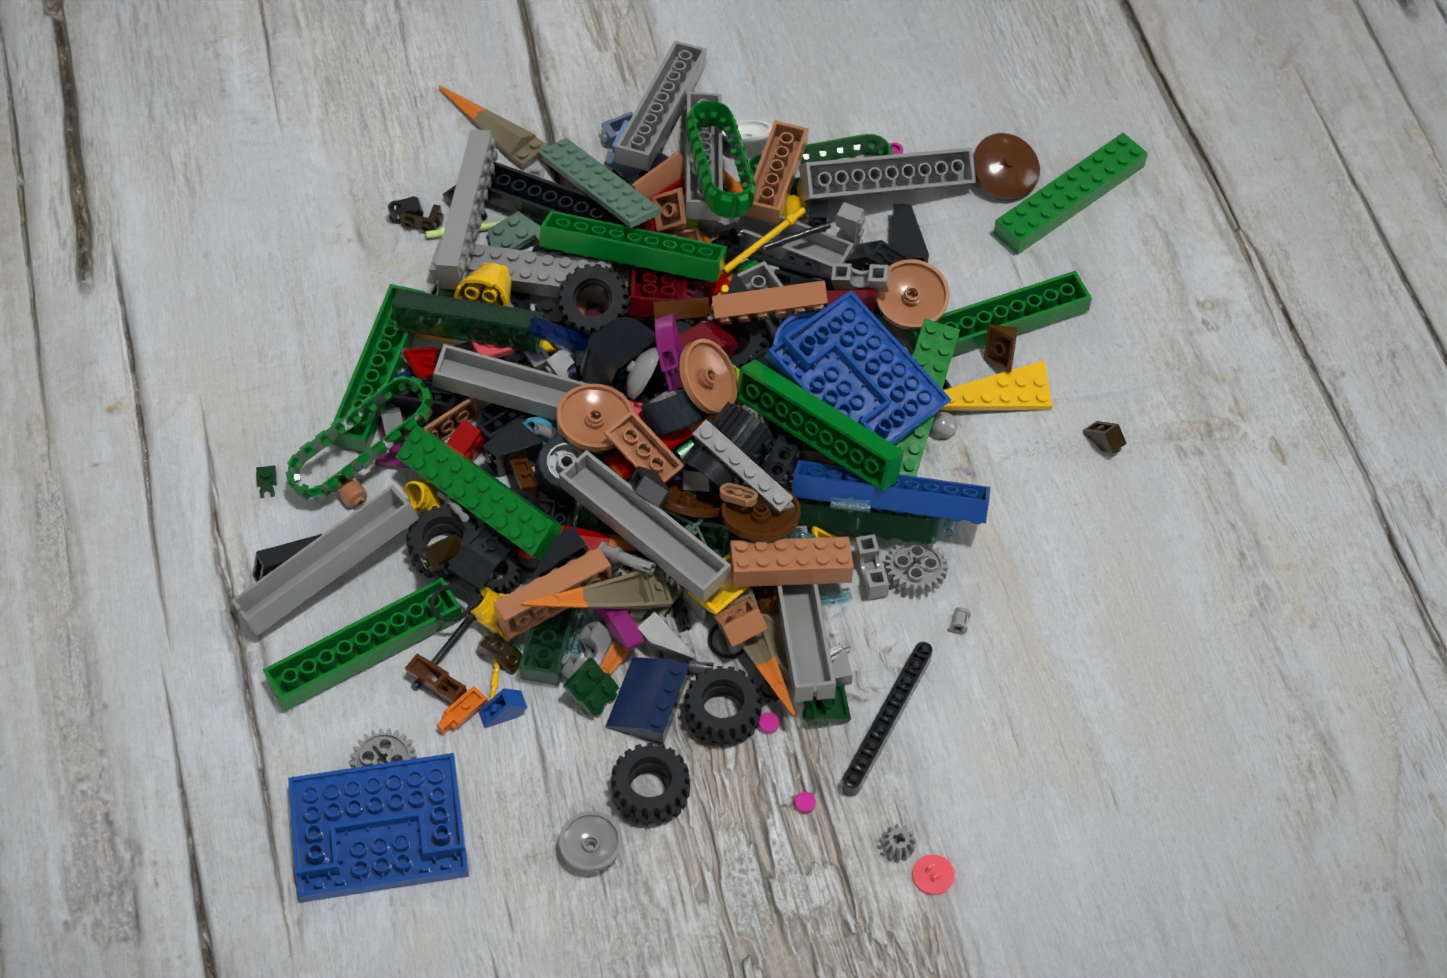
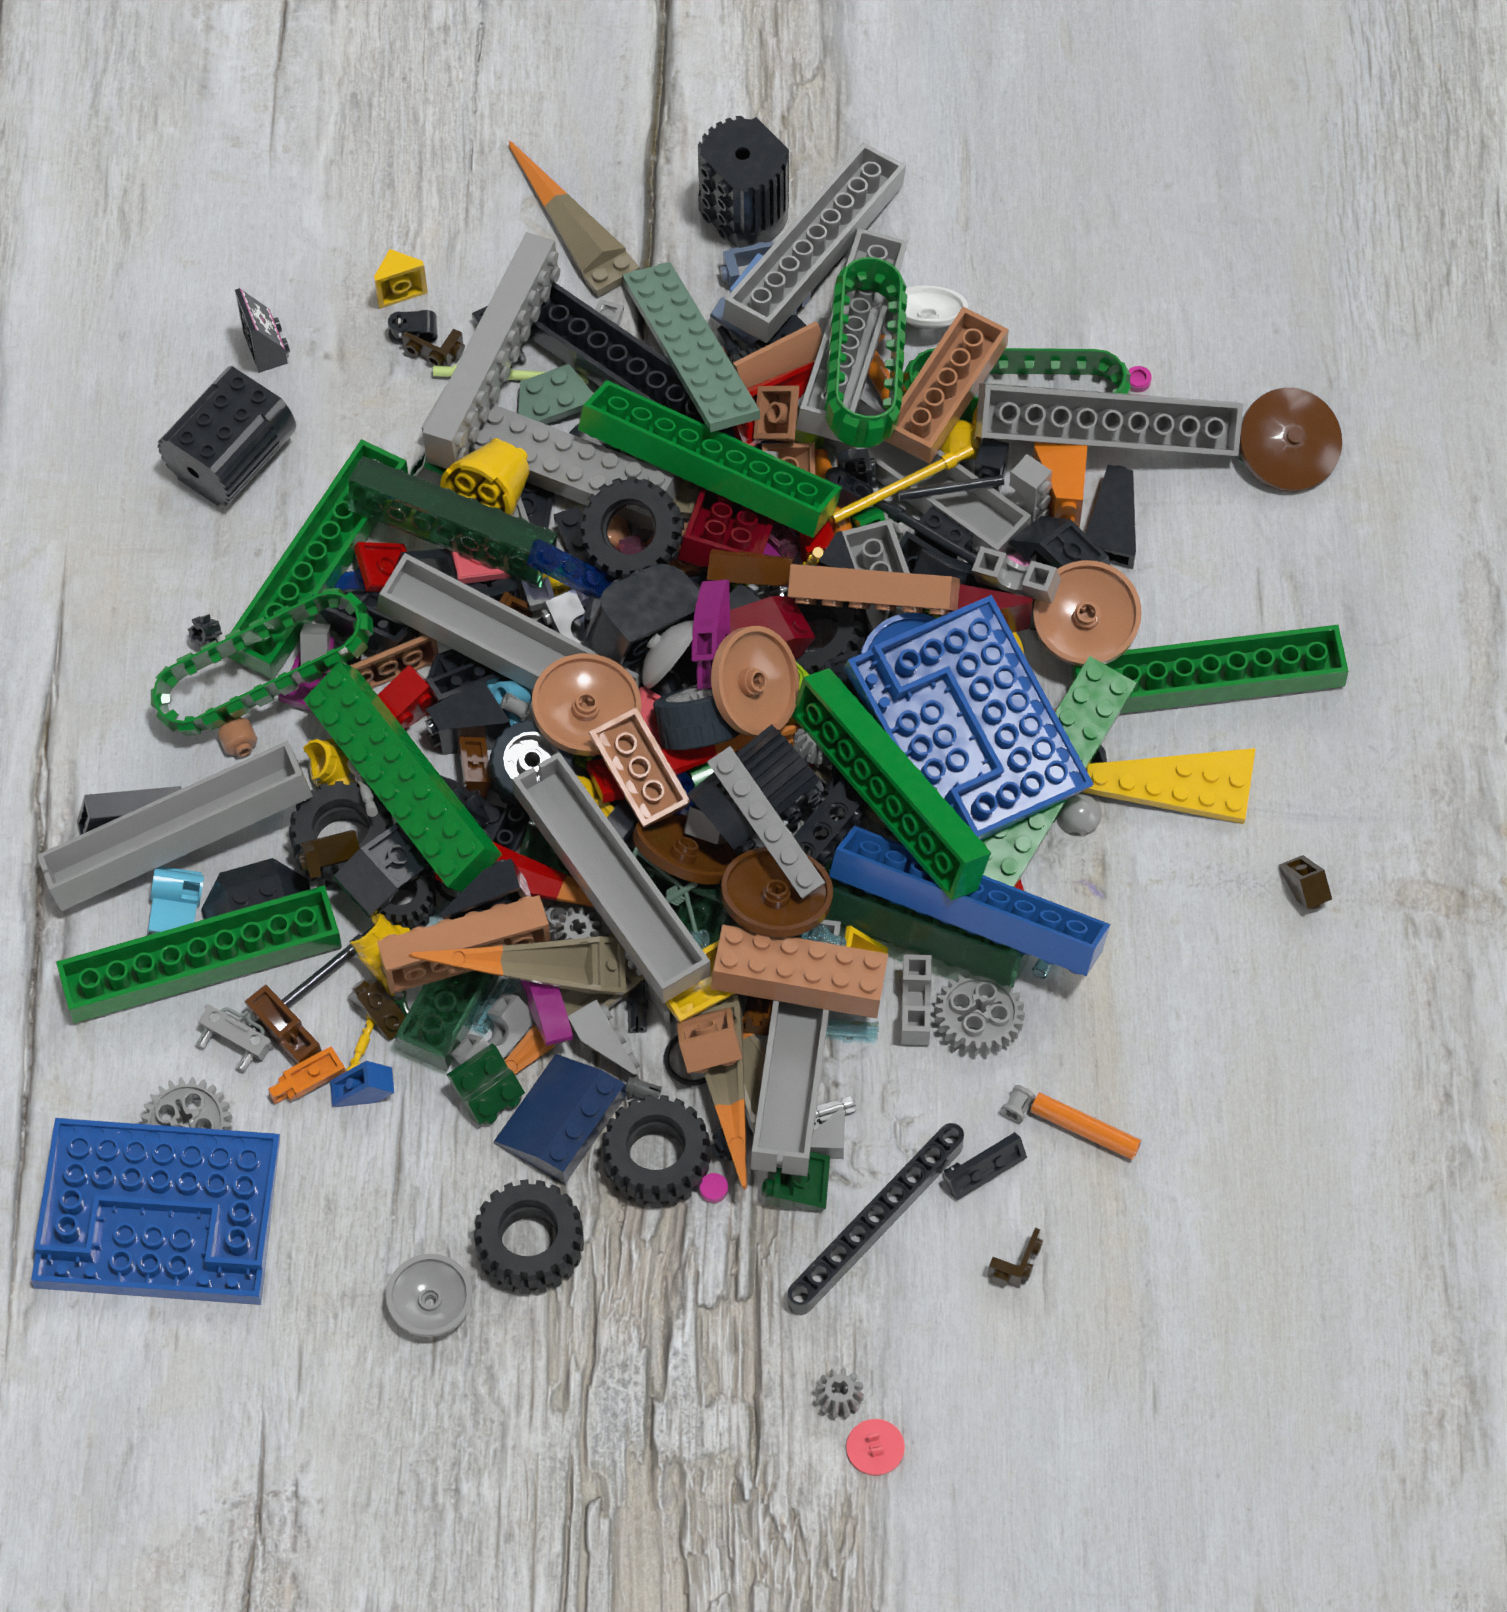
camera: 15 degrees right, 5 degrees up
(266, 479) = (126, 687): dark green plate -> none
(296, 300) = (226, 436): none -> black piece
(302, 232) = (261, 333): none -> black slope
(311, 428) = (204, 630): none -> black gear
(335, 609) = (174, 897): none -> medium azure piece
(388, 590) = (252, 886): none -> black wedge
(389, 180) = (399, 279): none -> yellow slope
(403, 692) = (235, 1033): none -> light grey piece
(453, 618) = (327, 948): black tyre -> none
(604, 75) = (743, 181): none -> black piece
(617, 556) = (565, 910): light grey pin -> none
(650, 486) = (630, 823): black slope -> none
(738, 494) = (751, 861): medium nougat plate -> none
(805, 802) = (731, 1309): dark pink tile -> none
(851, 504) = (905, 908): clear light blue pin -> none
(875, 222) = (1067, 479): none -> orange slope
(951, 666) = (984, 1166): none -> black hinge
(991, 734) = (1008, 1273): none -> dark brown bracket
(1000, 346) = (1196, 716): reddish brown slope -> none
(1010, 625) = (1085, 1126): none -> orange piece
(1070, 193) = (1374, 500): green brick -> none

